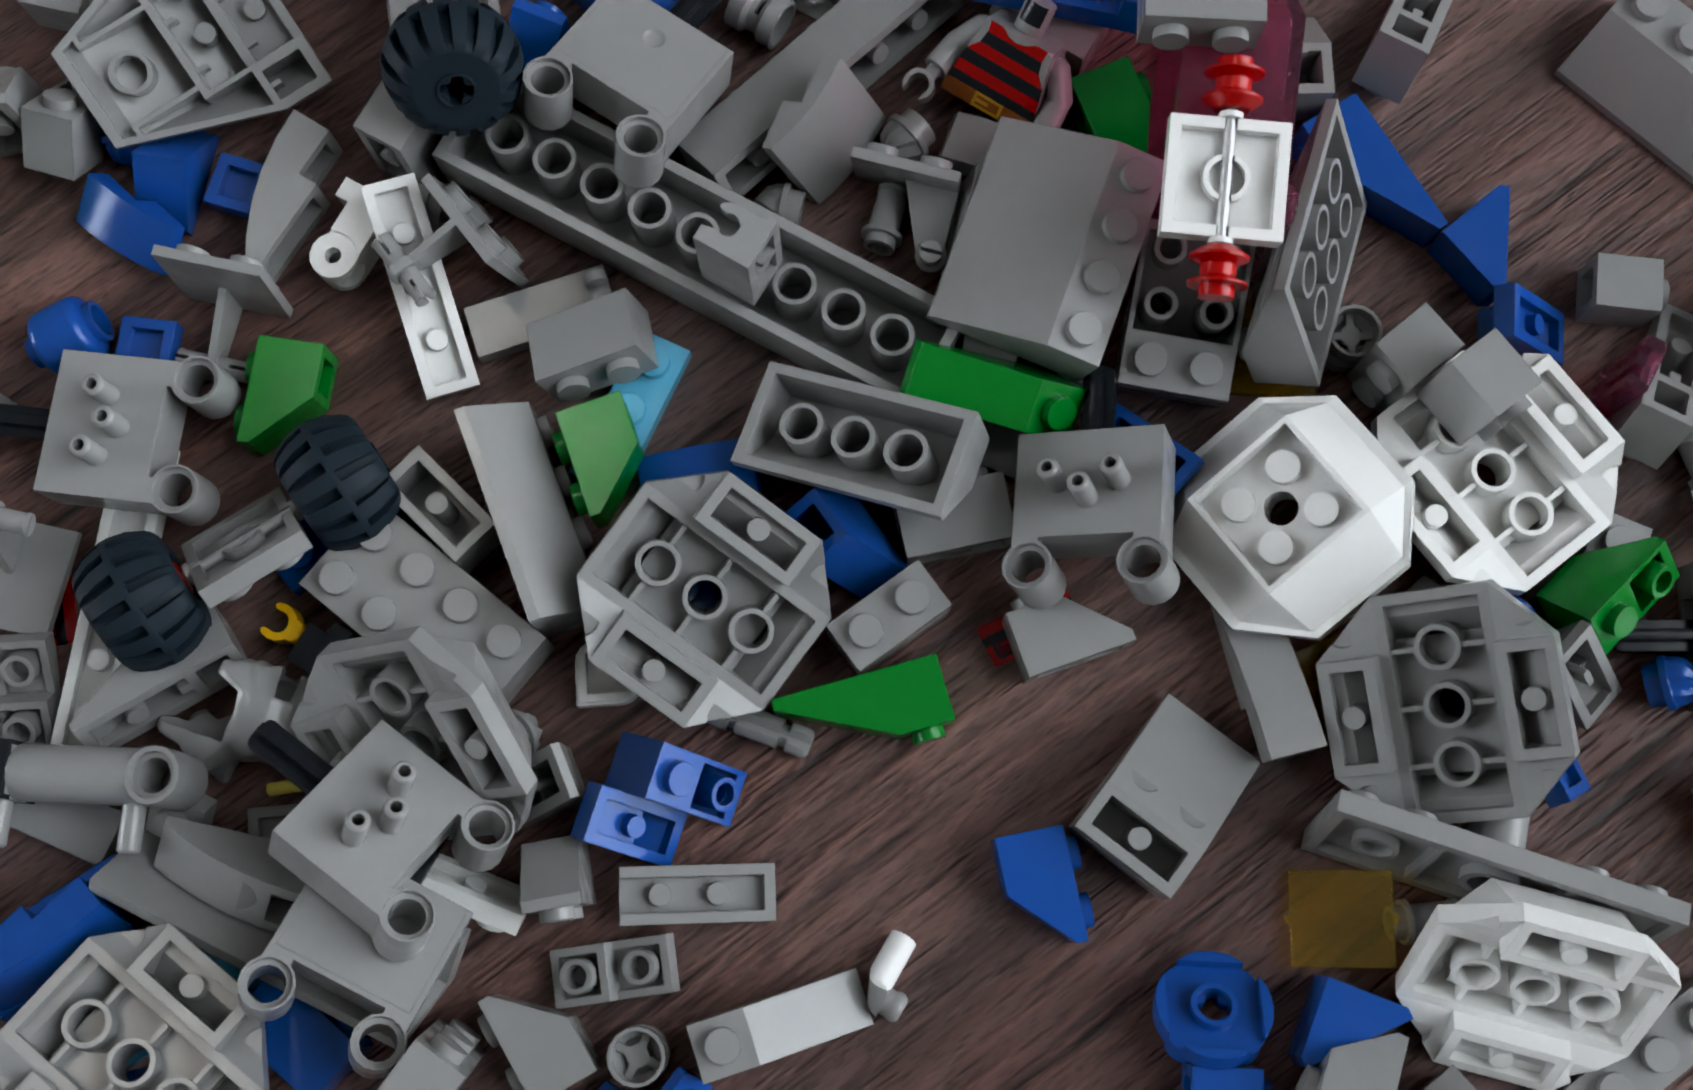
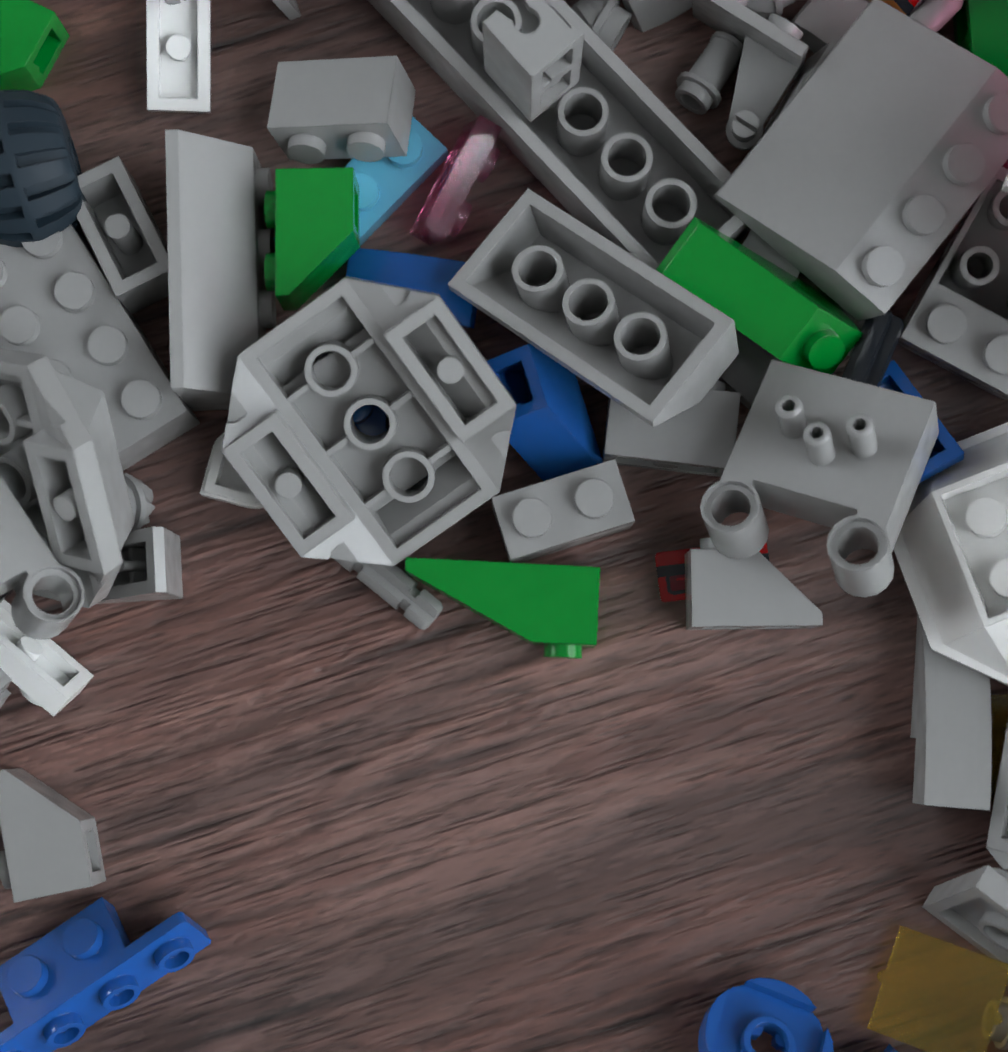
camera: 20 degrees right, 5 degrees up
(500, 323) = (252, 49): light grey hinge -> none
(556, 879) = (116, 671): light grey slope -> none
(614, 971) = (148, 786): light grey slope -> none
(628, 824) = (211, 638): blue slope -> none
(632, 1062) = (134, 892): light grey wheel -> none
(676, 778) = (277, 607): blue slope -> none
(696, 894) = (260, 736): light grey hinge -> none
(711, 355) = (468, 161): none -> clear pink plate
(778, 1025) = (299, 903): light grey slope -> none
(884, 973) = (430, 887): arm -> none
(1040, 879) = (630, 844): blue slope -> none
(1165, 798) = (795, 804): light grey slope -> none

